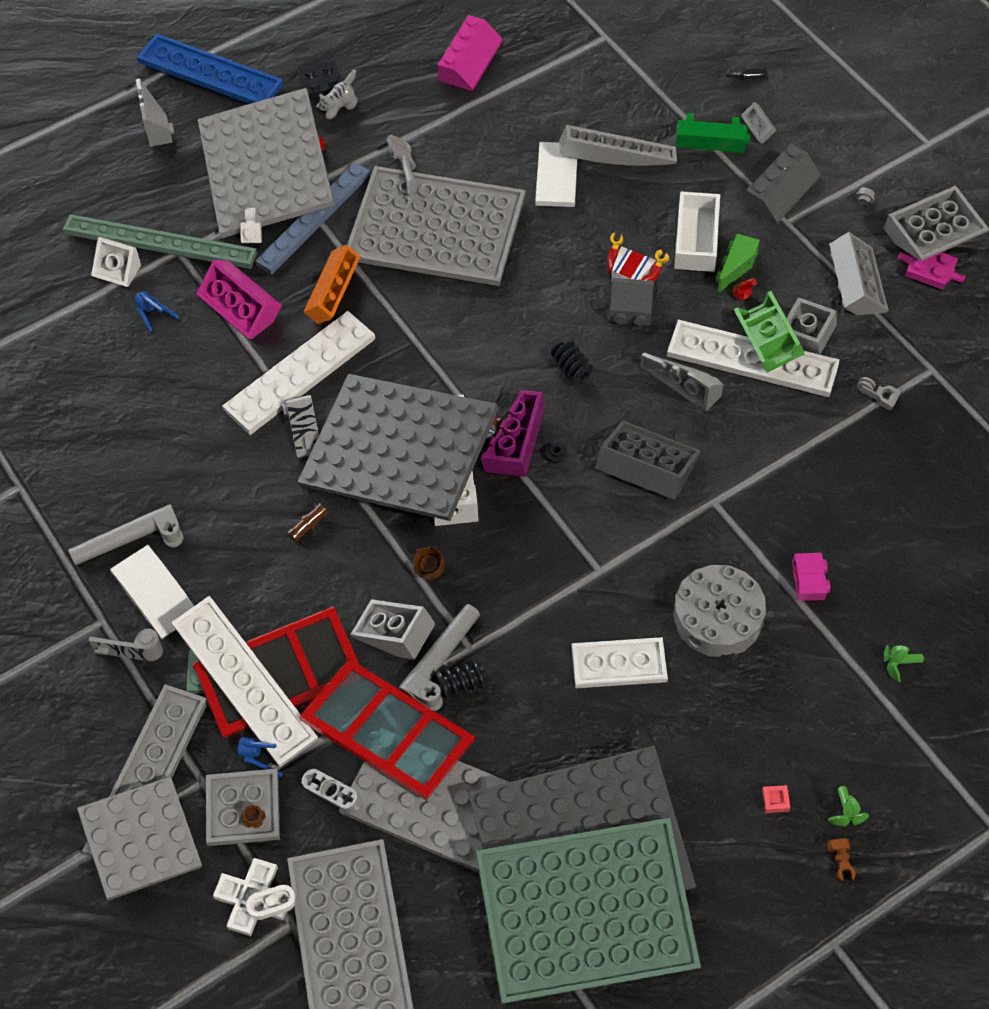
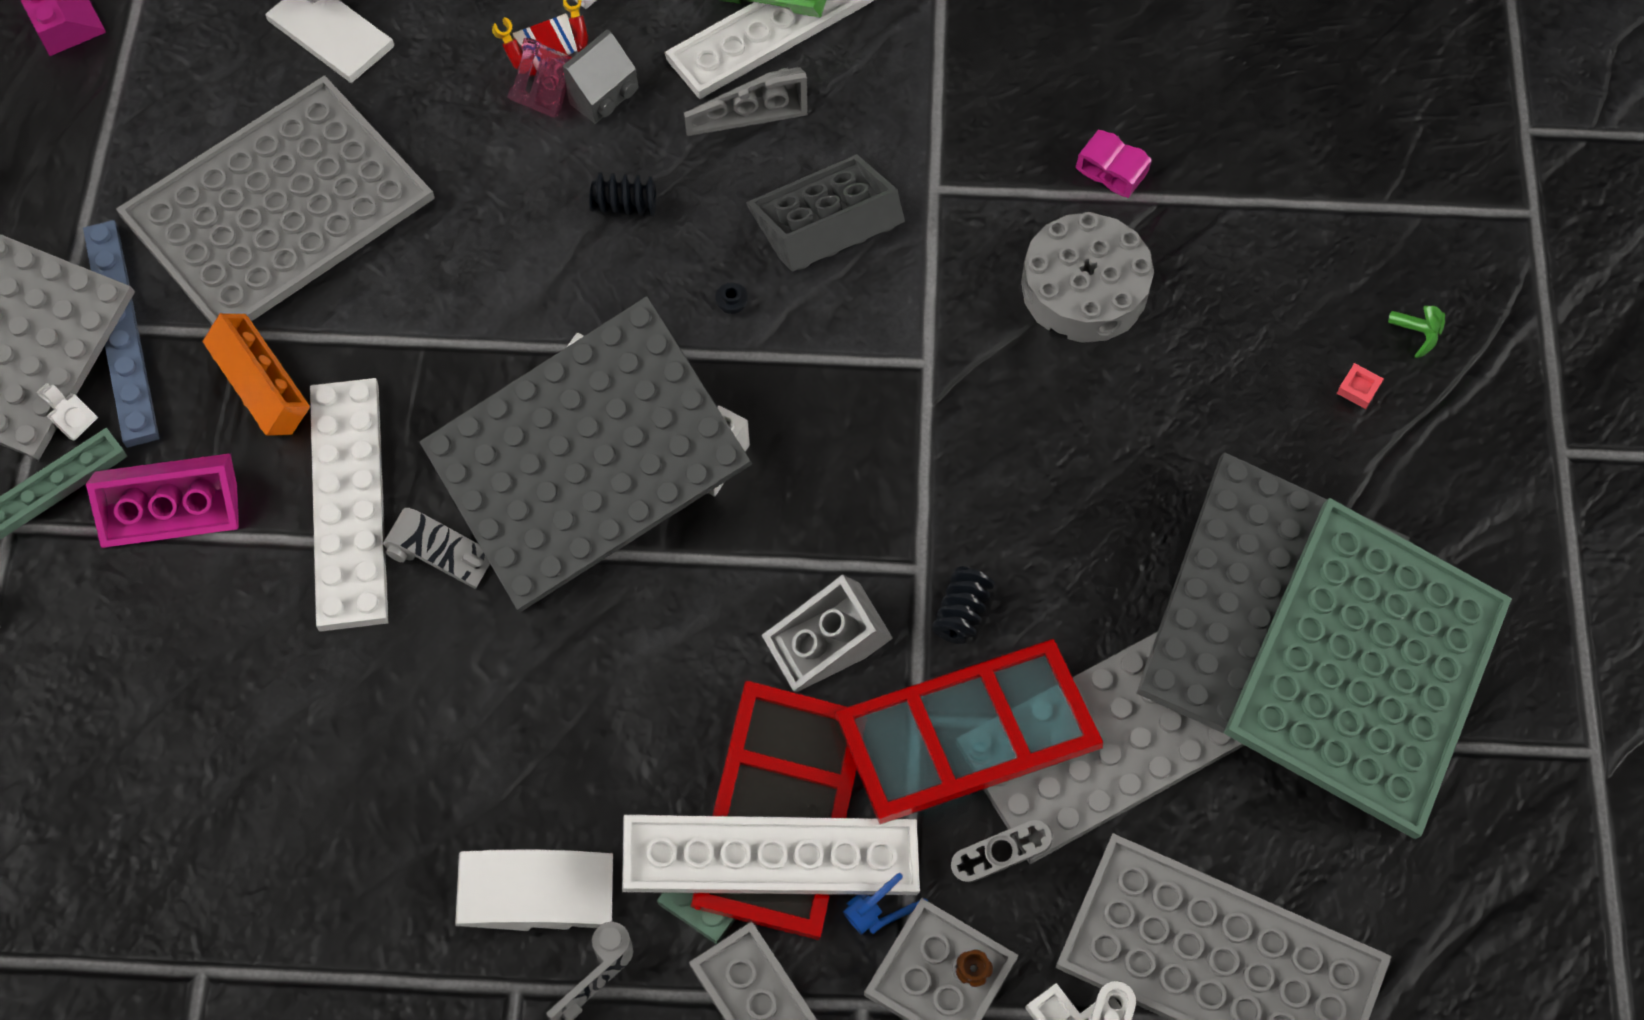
camera: 55 degrees left, 5 degrees up
(148, 303) = (58, 616): blue plant -> none
(160, 519) = (429, 811): light grey axle -> none
(307, 522) = (589, 636): reddish brown pin -> none
(402, 150) = (120, 162): light grey piece -> none
(418, 681) = (926, 657): light grey axle -> none
(429, 563) = (772, 533): reddish brown hair -> none
(514, 443) = (691, 325): magenta wedge -> none
(602, 286) = (549, 81): none -> clear pink plate
(619, 662) = (1066, 425): white tile -> none
(840, 847) = (1483, 378): dark orange piece -> none
(897, 656) = (1281, 148): bright green plant -> none

